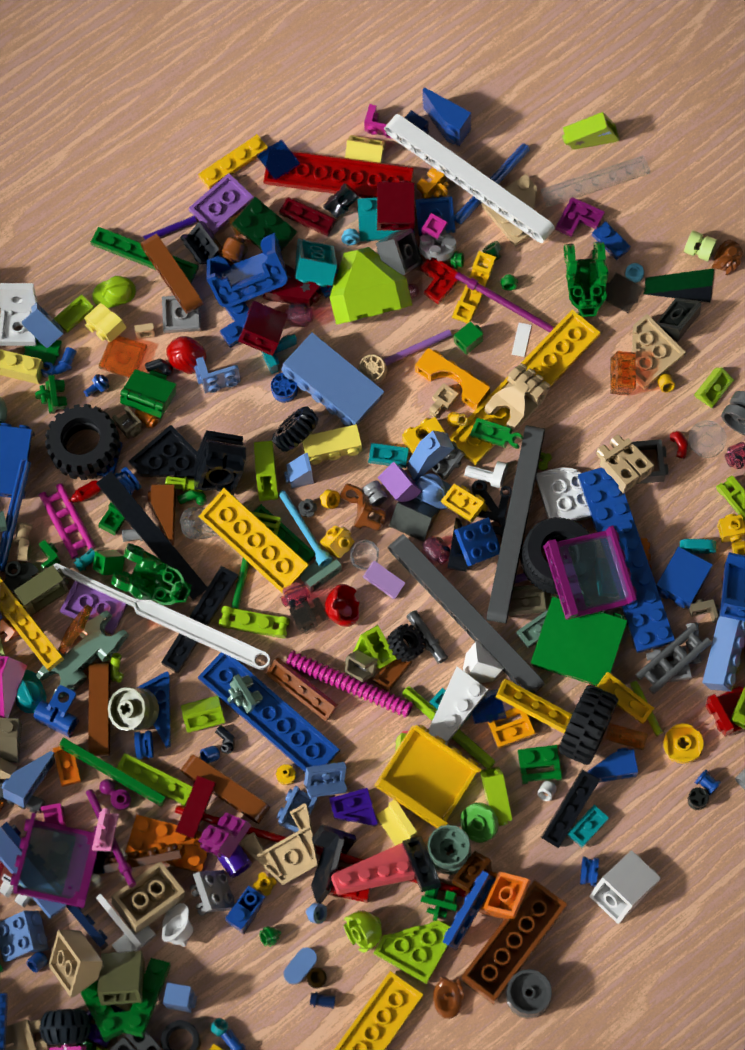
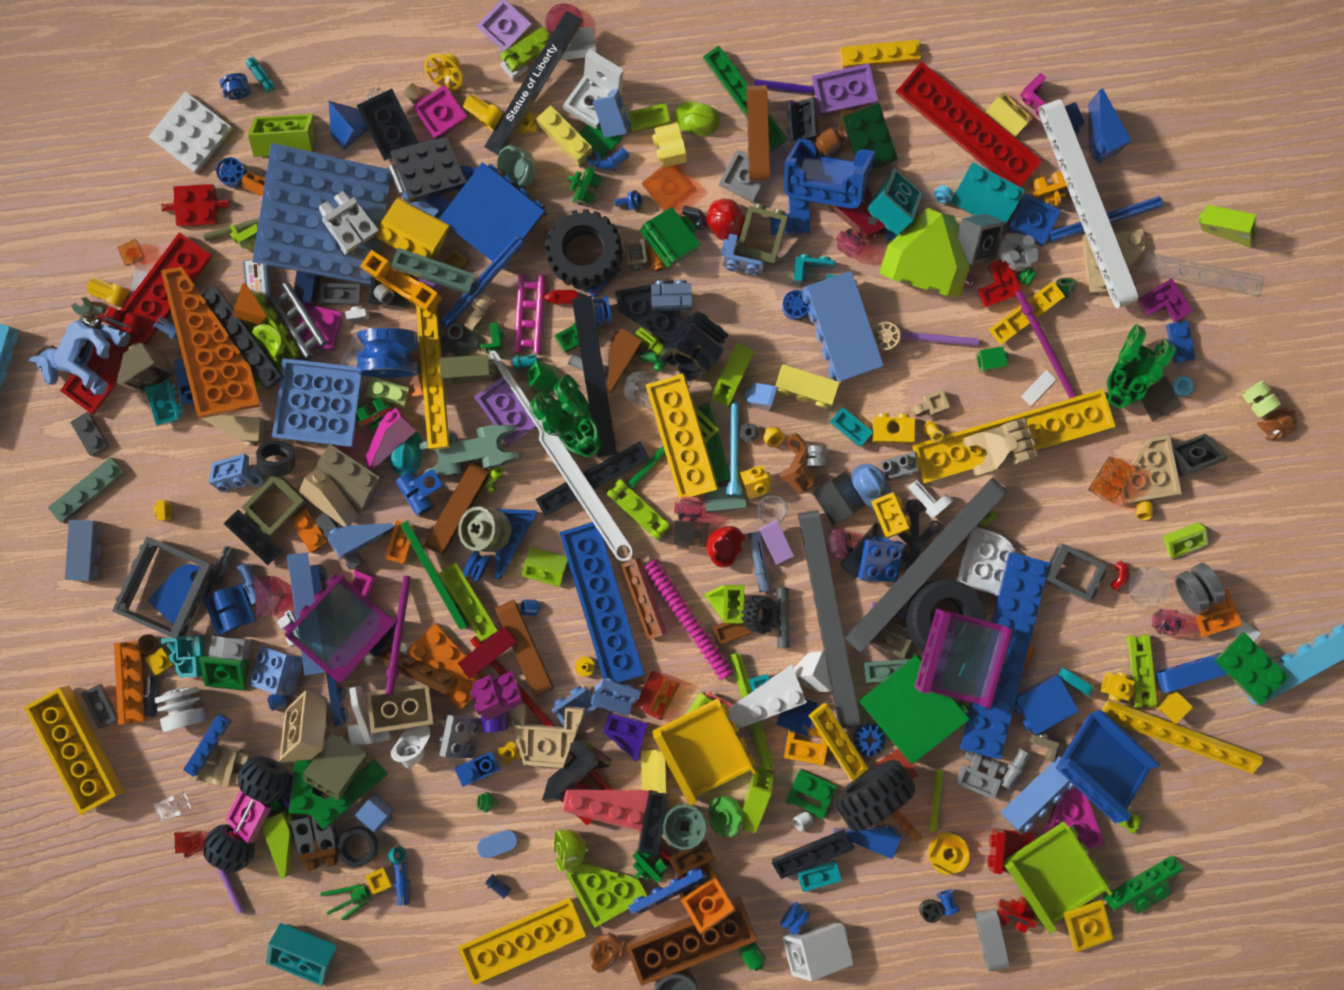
camera: 30 degrees right, 15 degrees up
(75, 628) = (475, 425): clear orange tile -> none
(105, 831) = (395, 628): bright pink hinge -> none
(108, 787) = (424, 584): magenta plate -> none
(145, 331) = (702, 174): tan tile -> none
(177, 436) = (671, 296): none -> sand blue brick
(225, 324) = (761, 209): none -> olive window
(228, 739) = (552, 605): black arm -> none
(241, 695) = (585, 574): sand green hips -> none
(263, 328) = (810, 238): dark red panel -> none
(278, 159) = (922, 77): clear blue piece -> none
(295, 429) = (781, 354): black gear -> none
(307, 216) = (916, 149): dark red tile -> none
(316, 913) = (537, 807): medium blue tile -> none
(316, 978) = (504, 863): dark brown plate -> none
(341, 200) = (953, 154): black hips -> none
(360, 665) = (707, 610): dark tan window -> none
(361, 760) = (656, 695): none -> clear red panel
(386, 610) = (761, 570): none -> sand blue pin
(395, 205) = (1003, 190): dark red panel -> none
(399, 483) = (844, 461): medium lavender brick -> none
(429, 453) = (888, 452): medium blue slope -> none
(434, 226) = (1026, 232): dark pink panel -> none
(434, 366) = (944, 366): light orange arch -> none
(494, 433) = (958, 468): green plate -> none
(509, 282) = (1061, 326): green plate -> none
(569, 694) = (863, 732): none -> blue gear
(573, 925) = (752, 956): none -> green brick
(624, 463) = (1059, 571): tan hips -> none
(627, 699) = (924, 787): yellow plate -> none
(674, 646) = (980, 785): dark grey bar -> none
(685, 285) = (1222, 427): dark green sticker -> none

